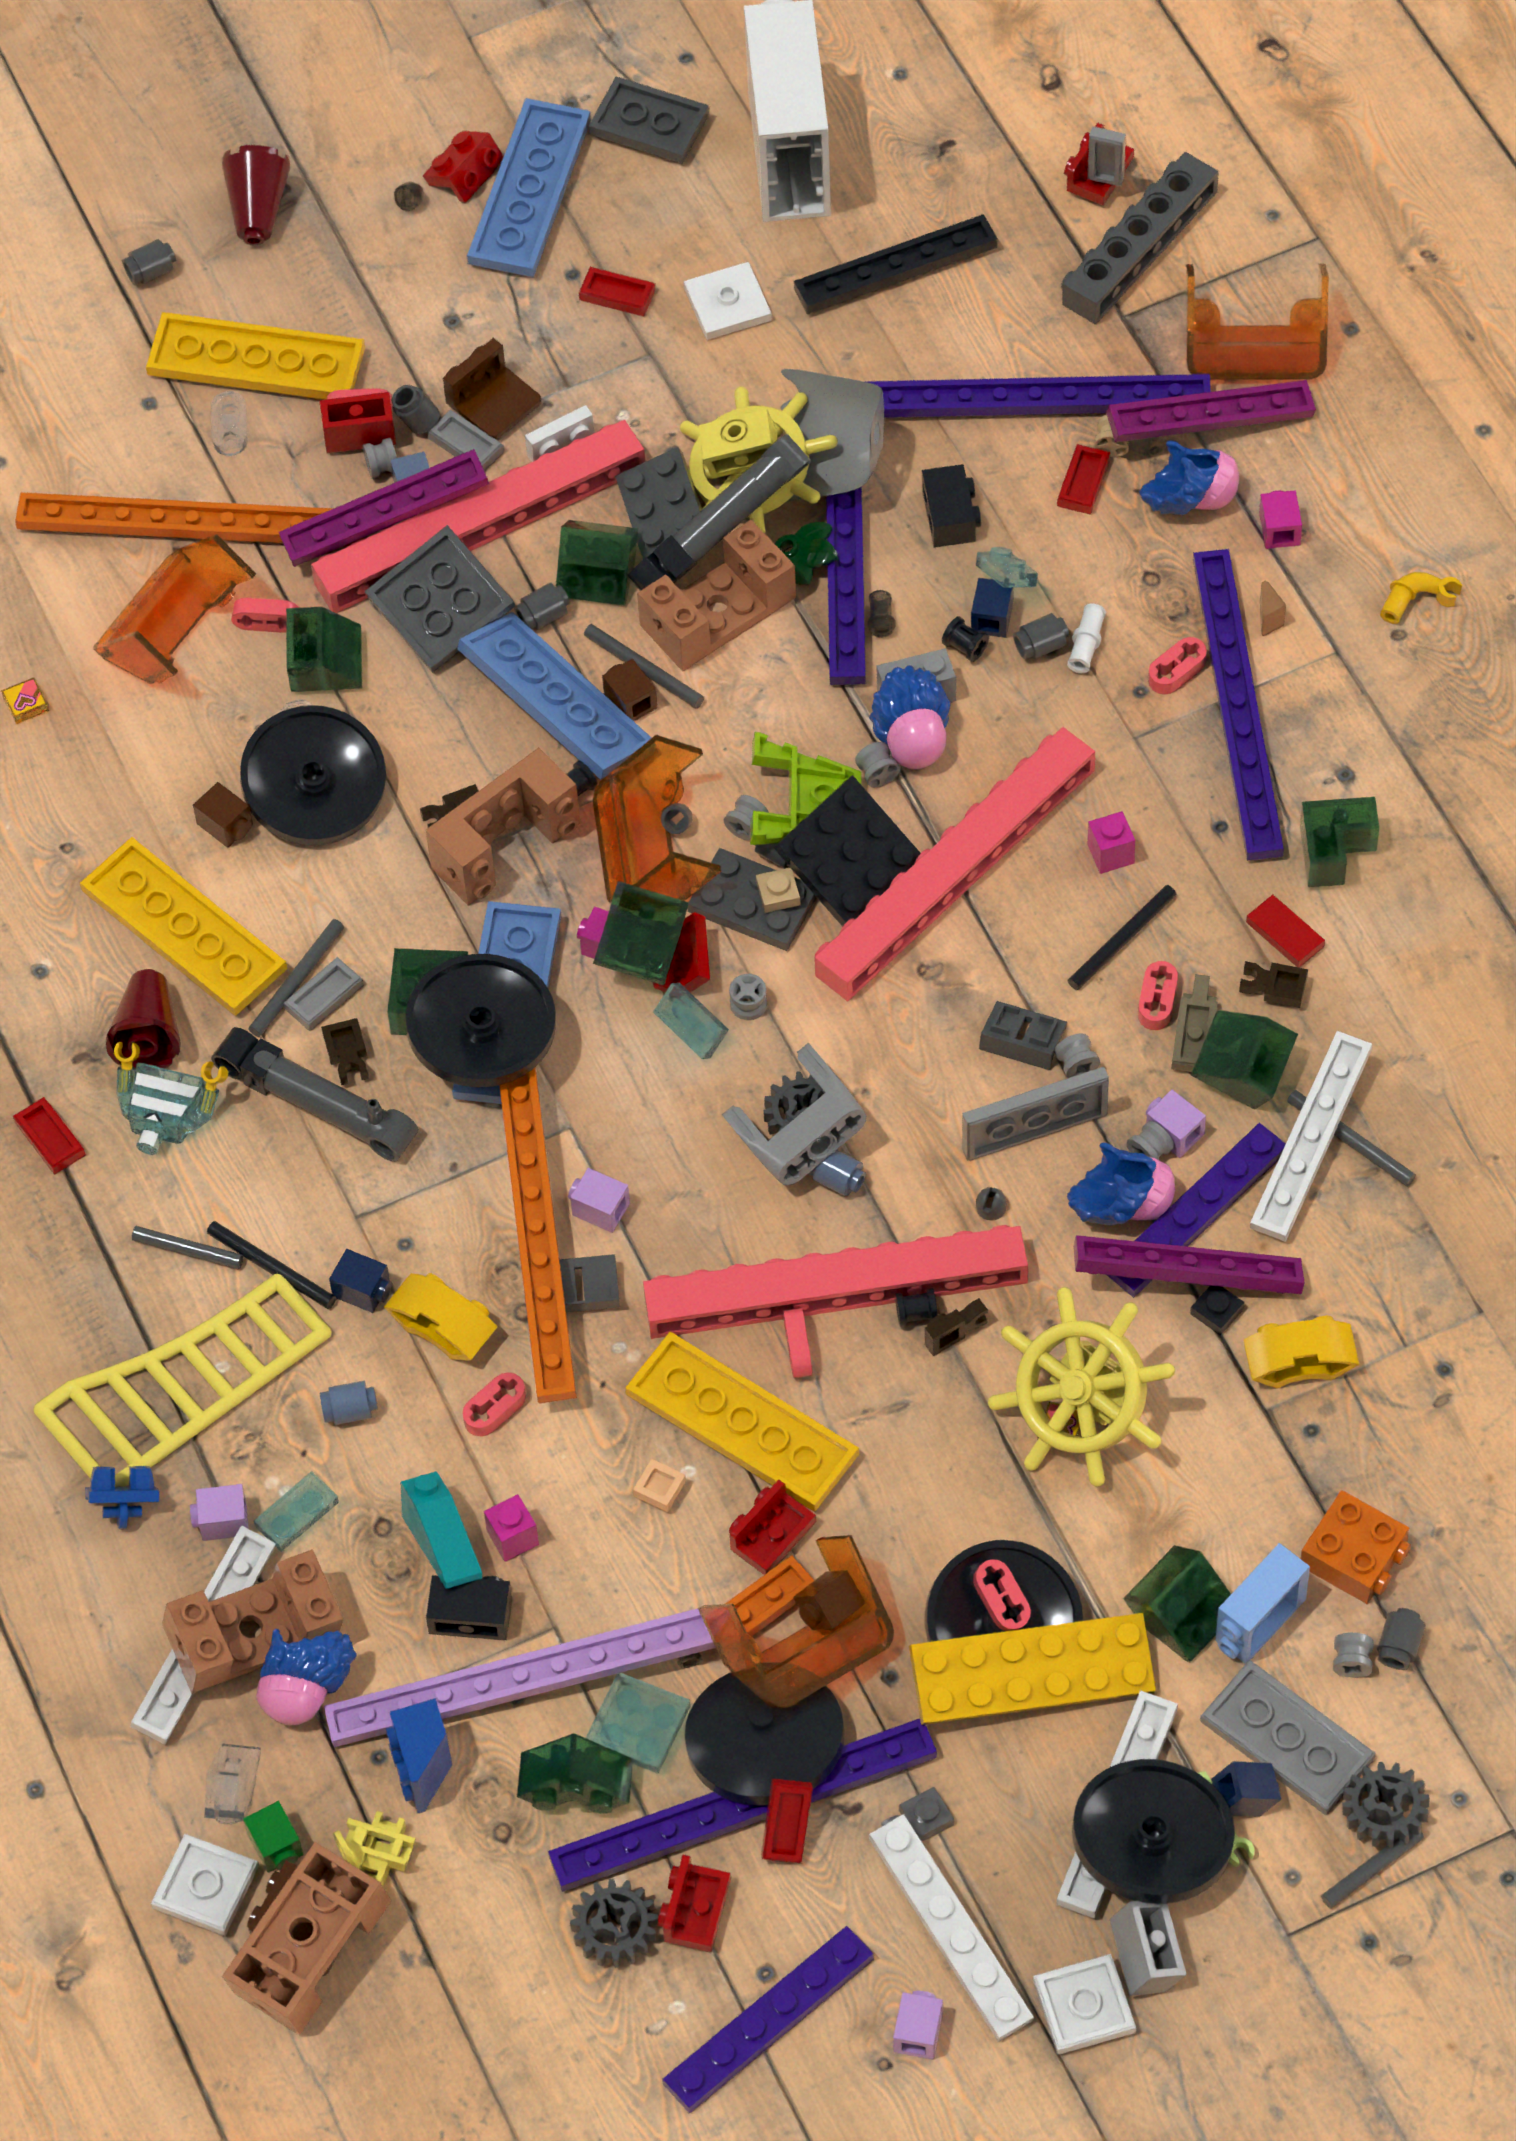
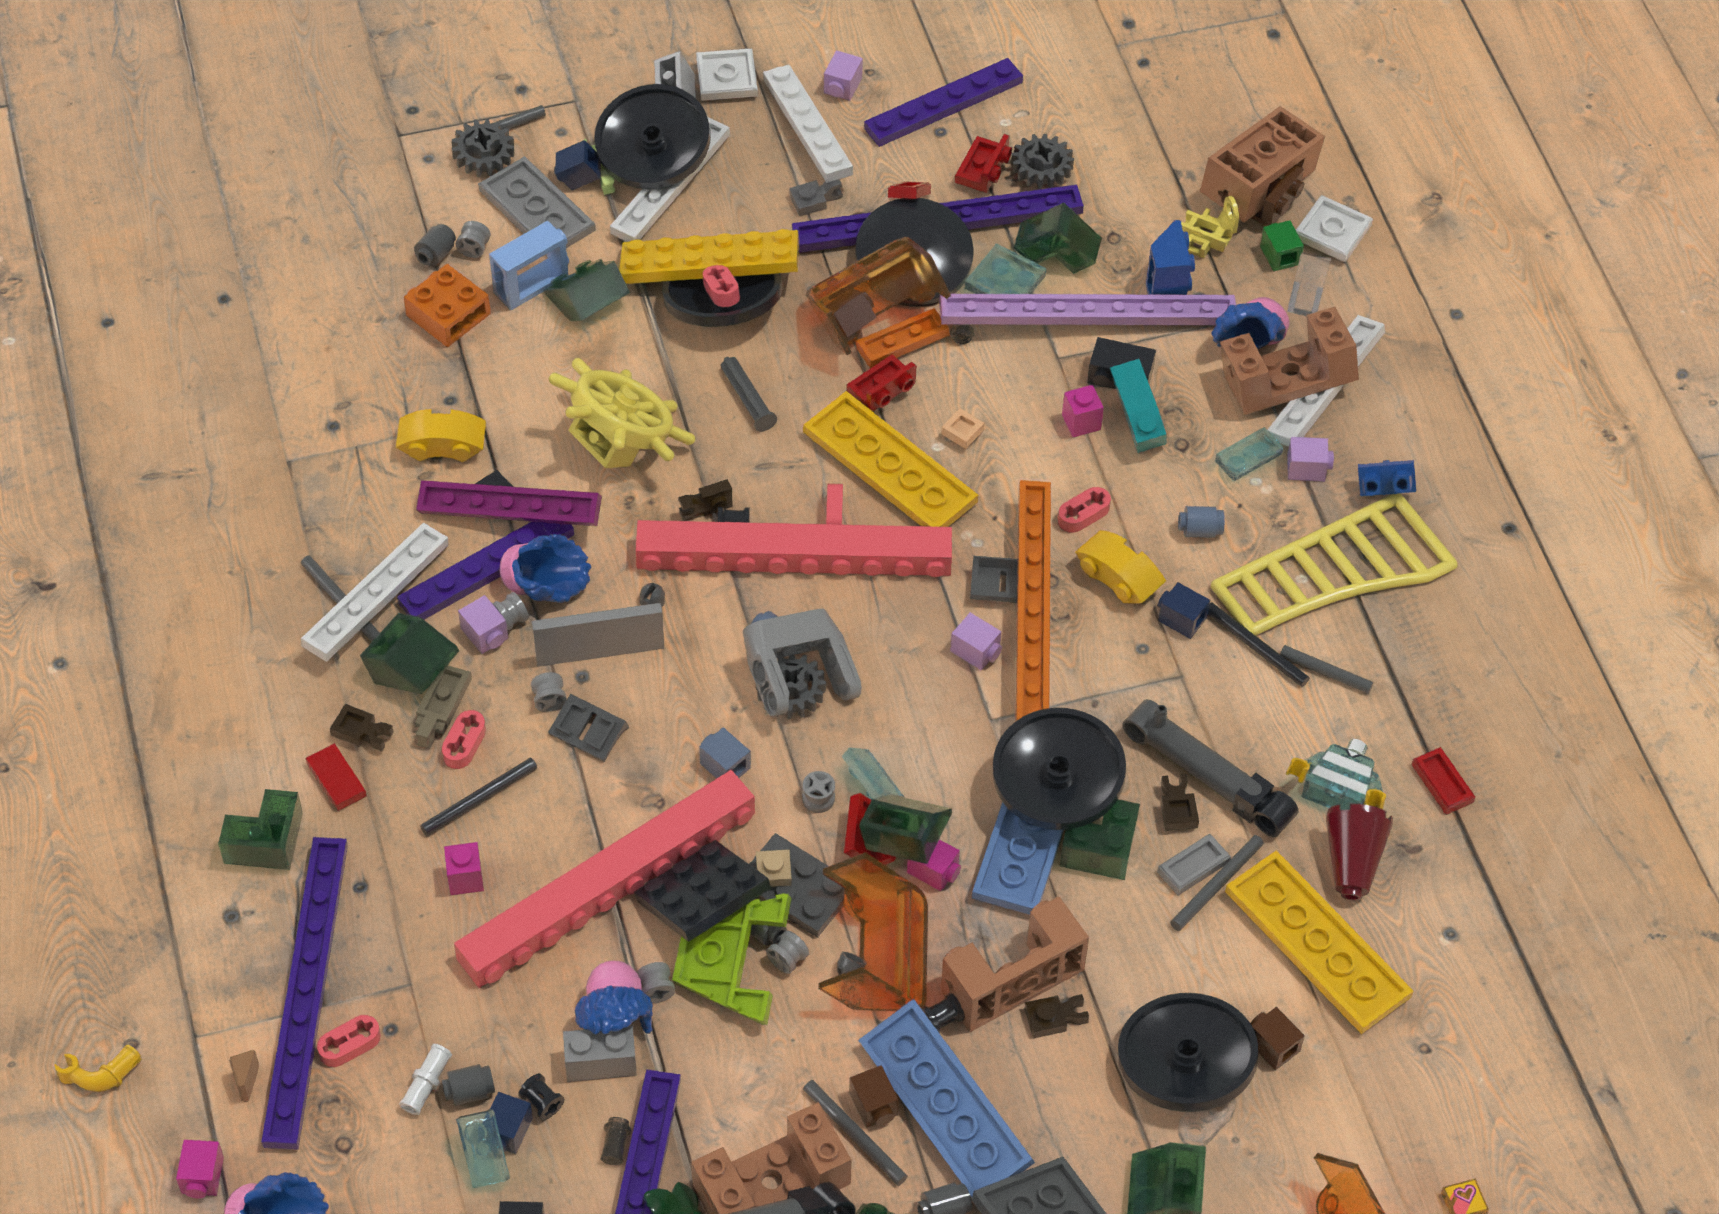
camera: 175 degrees left, 5 degrees down
(860, 1014) = (724, 753): none -> sand blue brick
(939, 1491) = (748, 394): none -> dark grey axle

